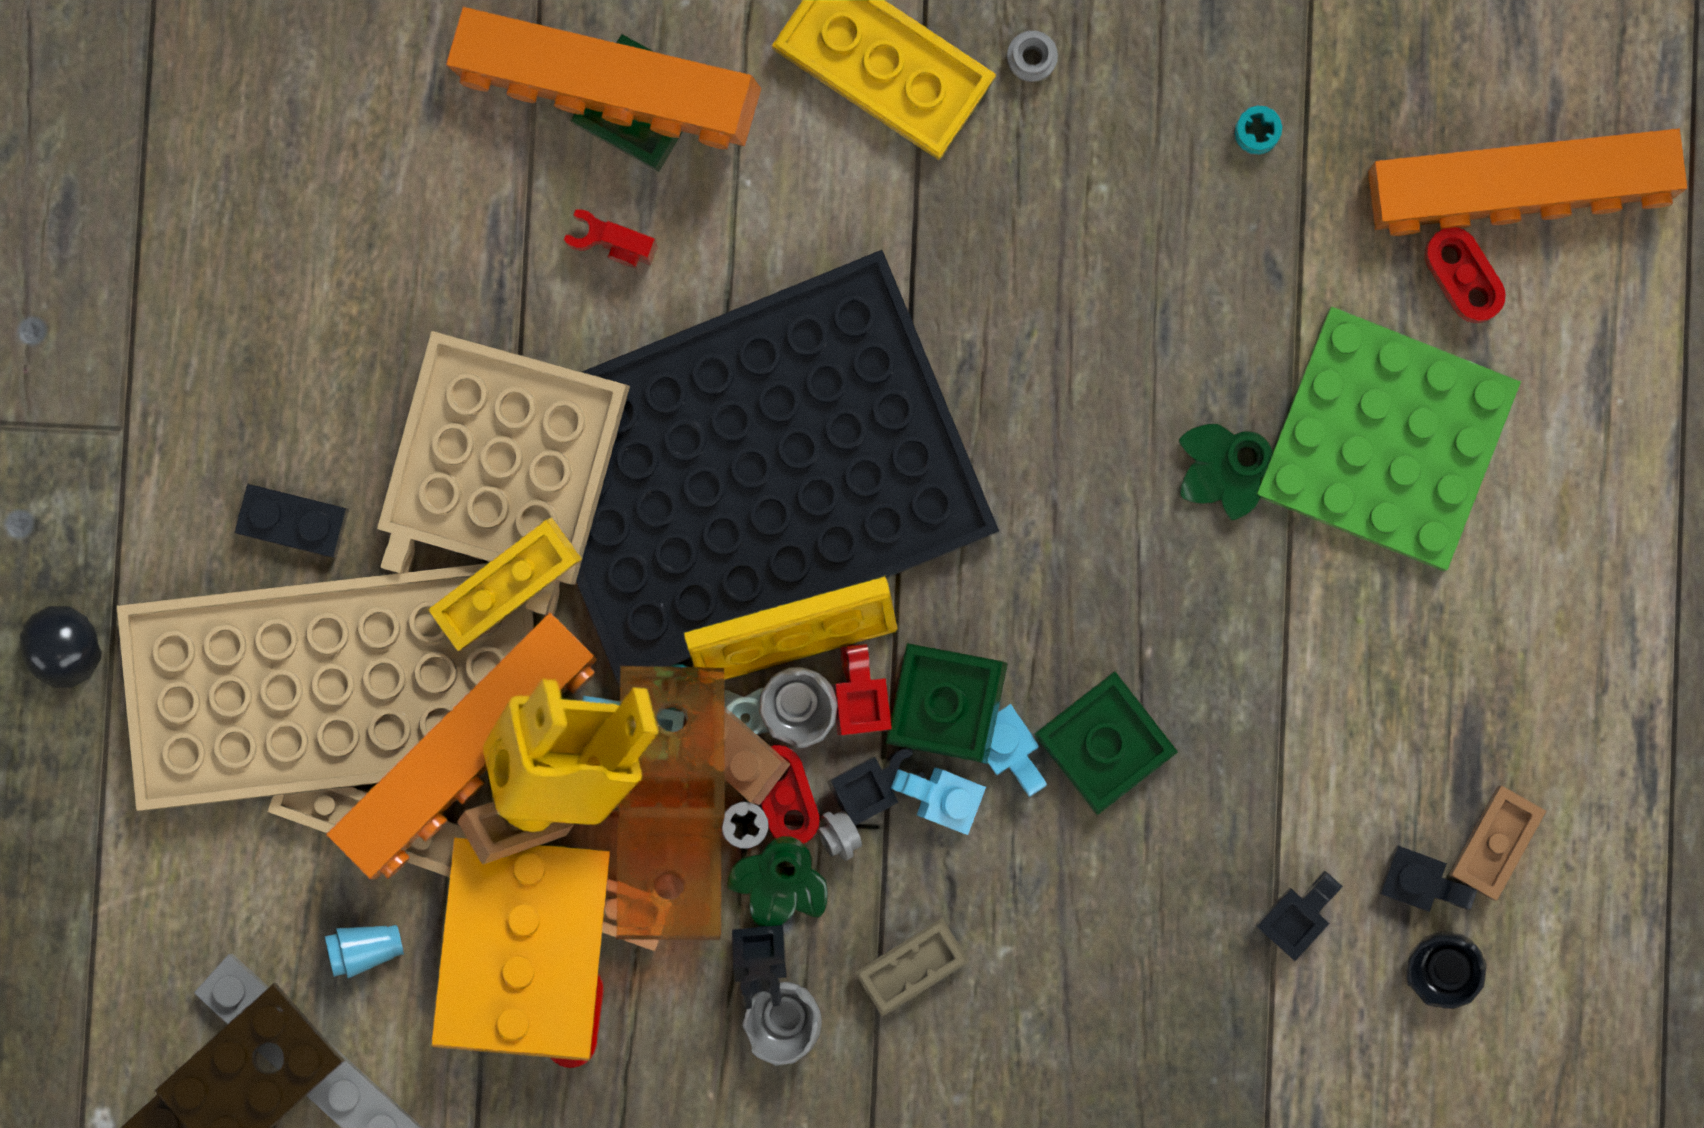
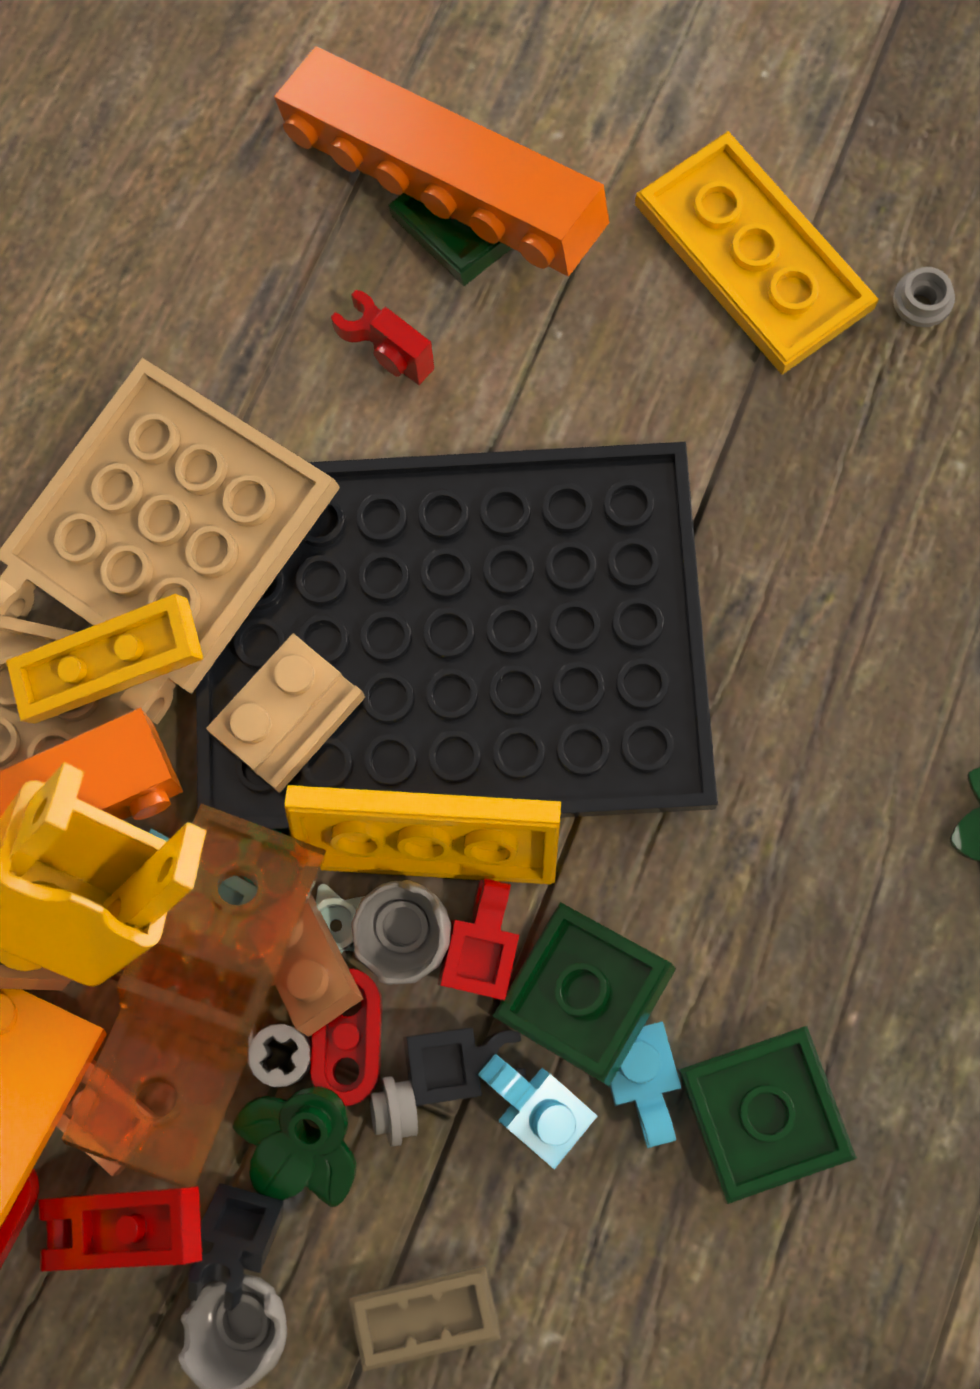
camera: 25 degrees right, 10 degrees down
(652, 574) = (285, 712): none -> tan plate
(678, 982) = (121, 1229): none -> red plate

